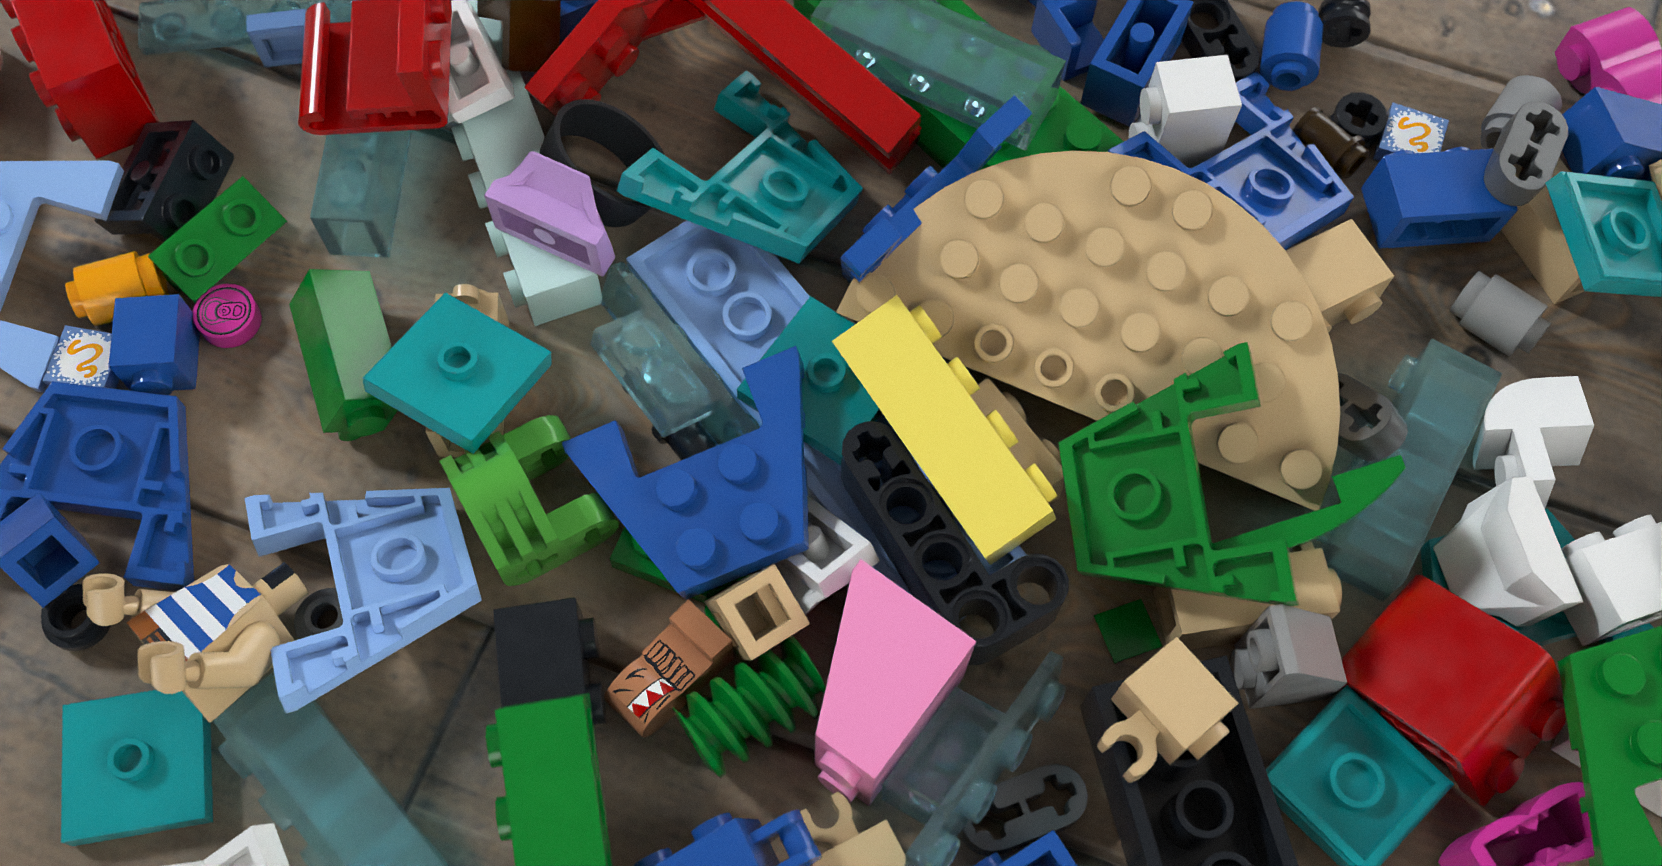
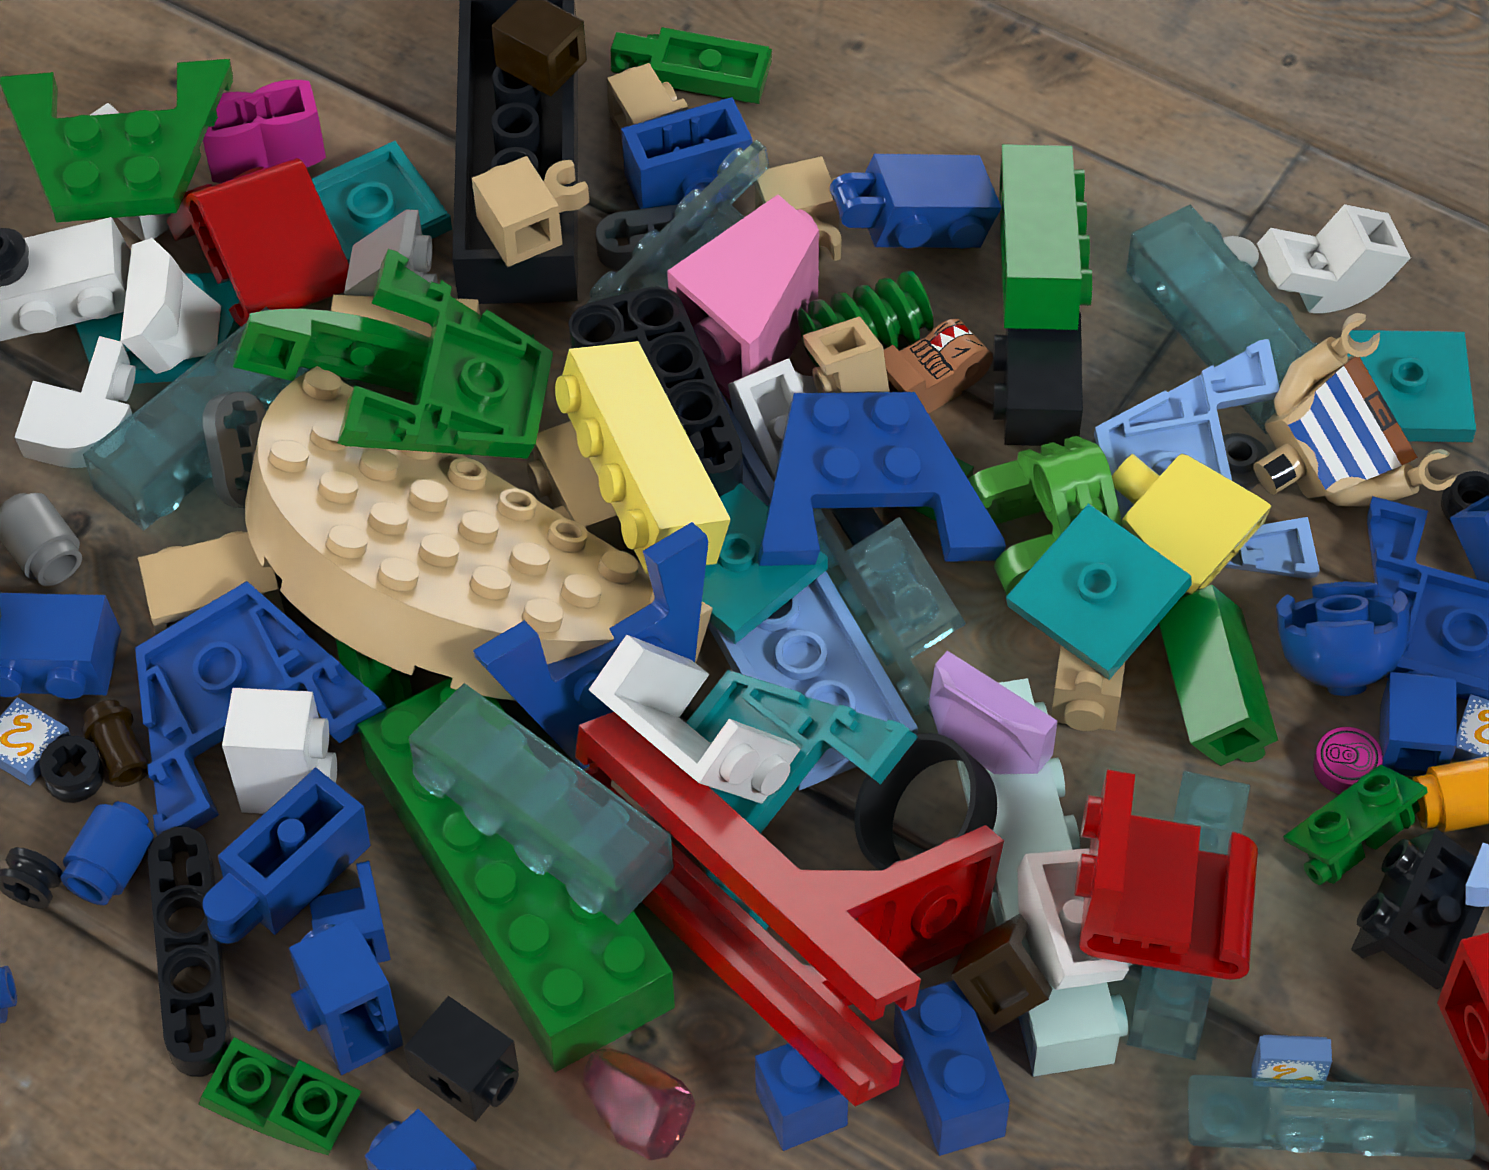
camera: 165 degrees left, 10 degrees down
(189, 407) = (1344, 635): none -> blue cylinder
(372, 488) = (1189, 514): none -> light yellow torso
(821, 141) = (652, 691): none -> white panel

